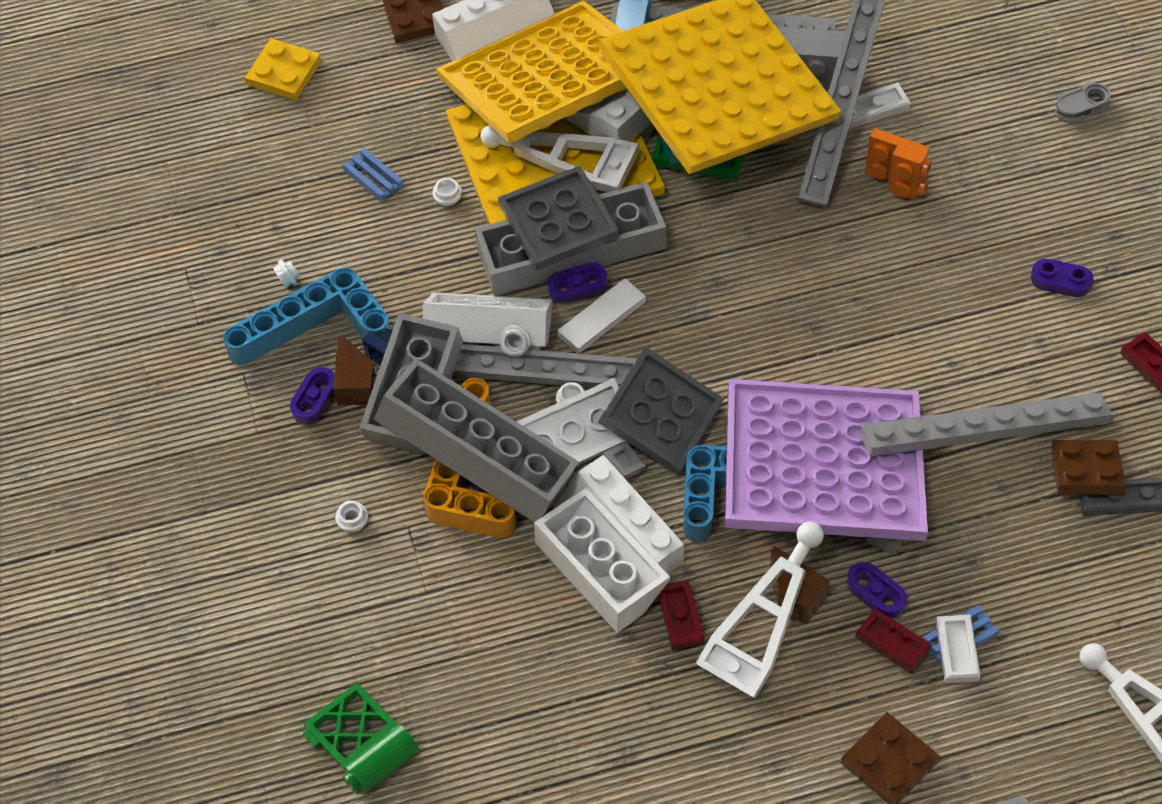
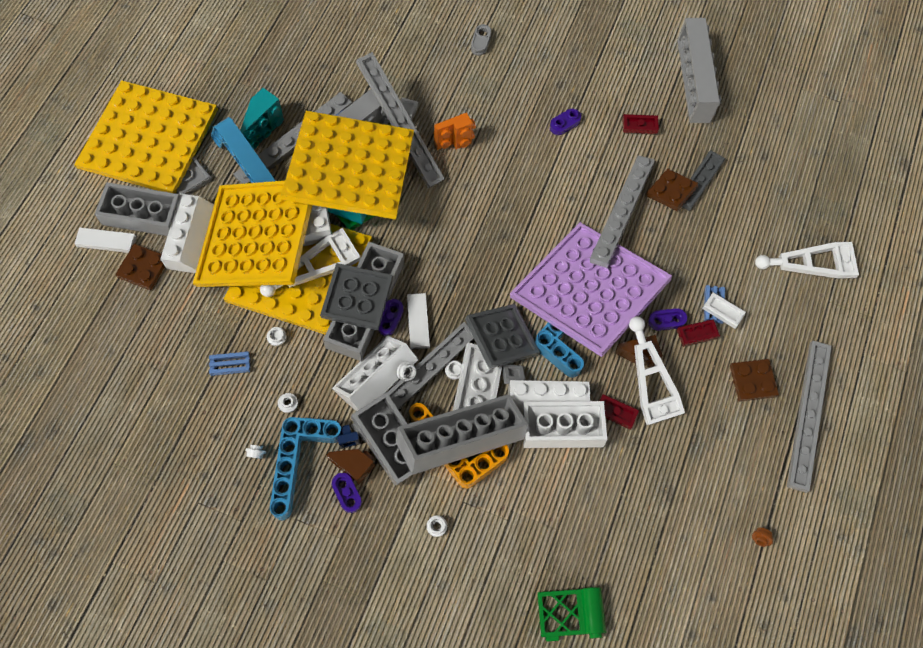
camera: 60 degrees left, 10 degrees up
(283, 69) = (112, 358): yellow plate -> none
(376, 268) = (287, 408): none -> white plate

